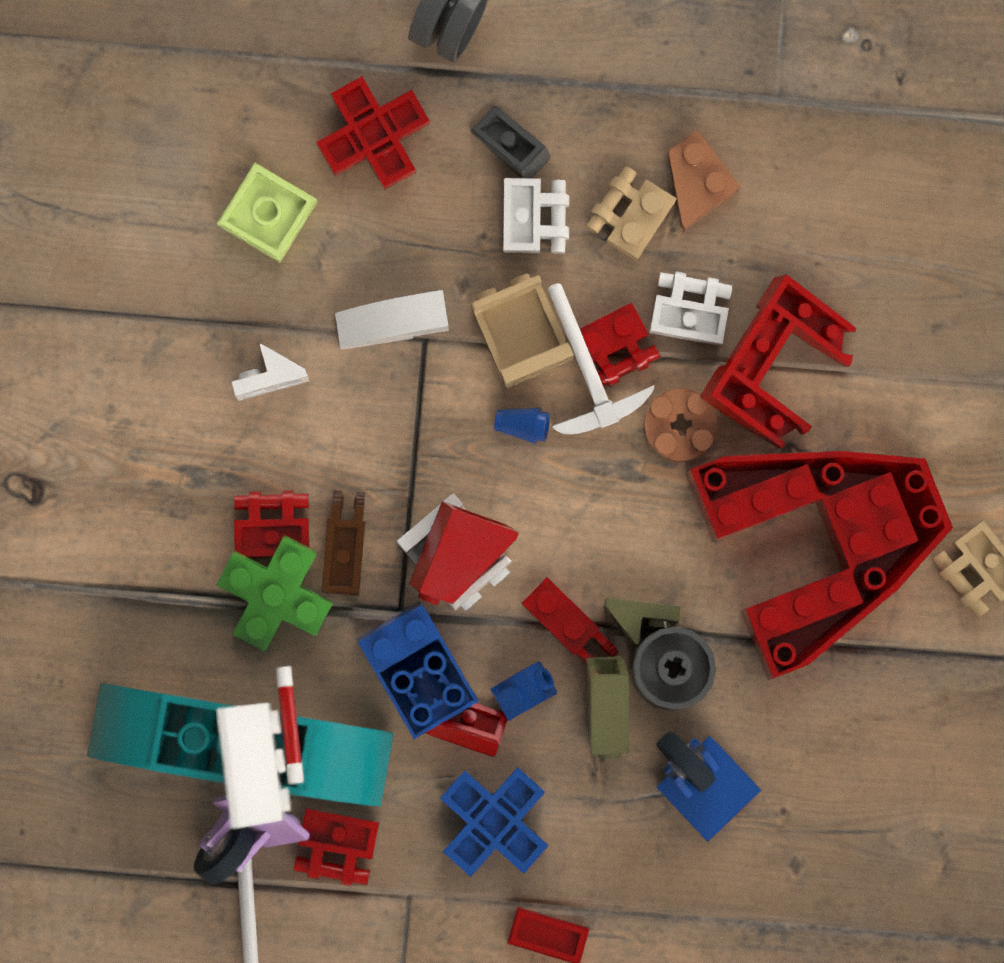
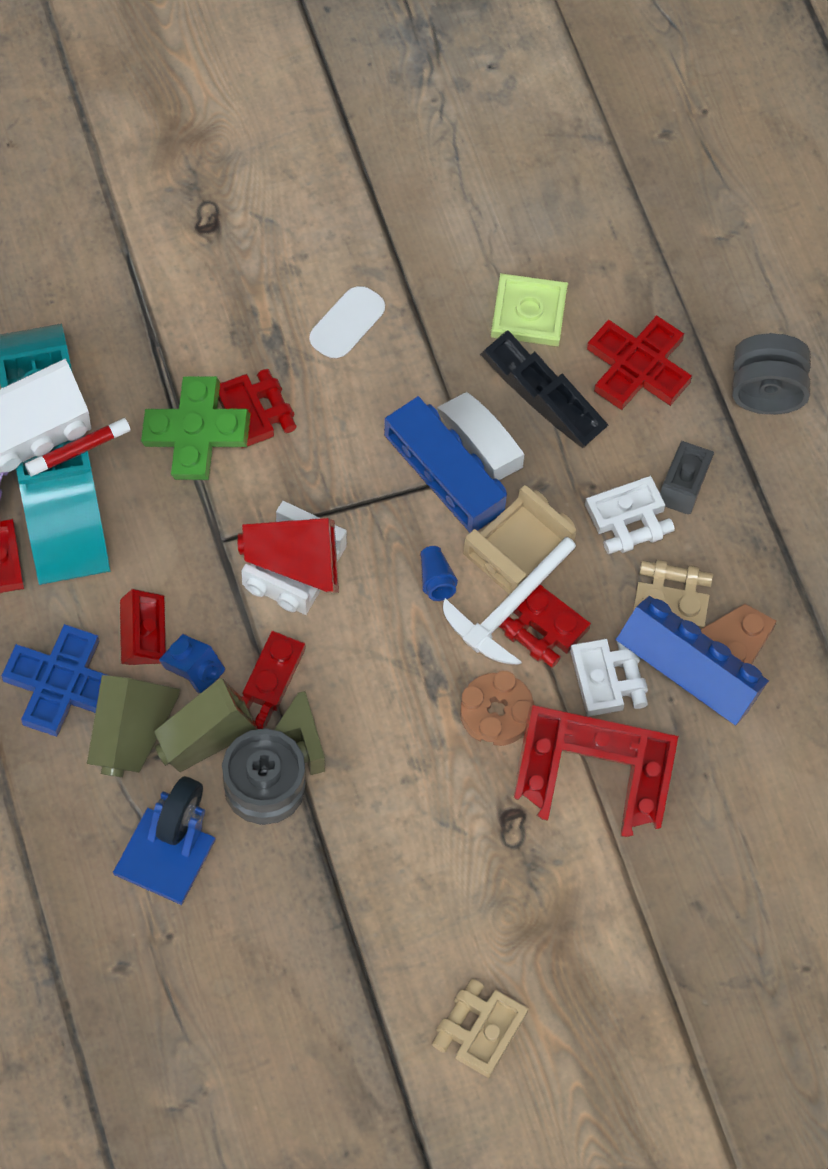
camera: 70 degrees right, 20 degrees down
(205, 396) = (347, 322): none -> white sticker
(279, 375) = (386, 361): white slope -> none
(344, 548) = (262, 469): reddish brown hinge -> none
(365, 237) = (544, 390): none -> black slope
(415, 368) = (445, 464): none -> blue brick
(417, 670) = (175, 560): blue slope -> none
(569, 775) = (126, 723): none -> olive slope
(714, 227) = (692, 659): none -> brick
(877, 514) = (481, 909): red piece -> none

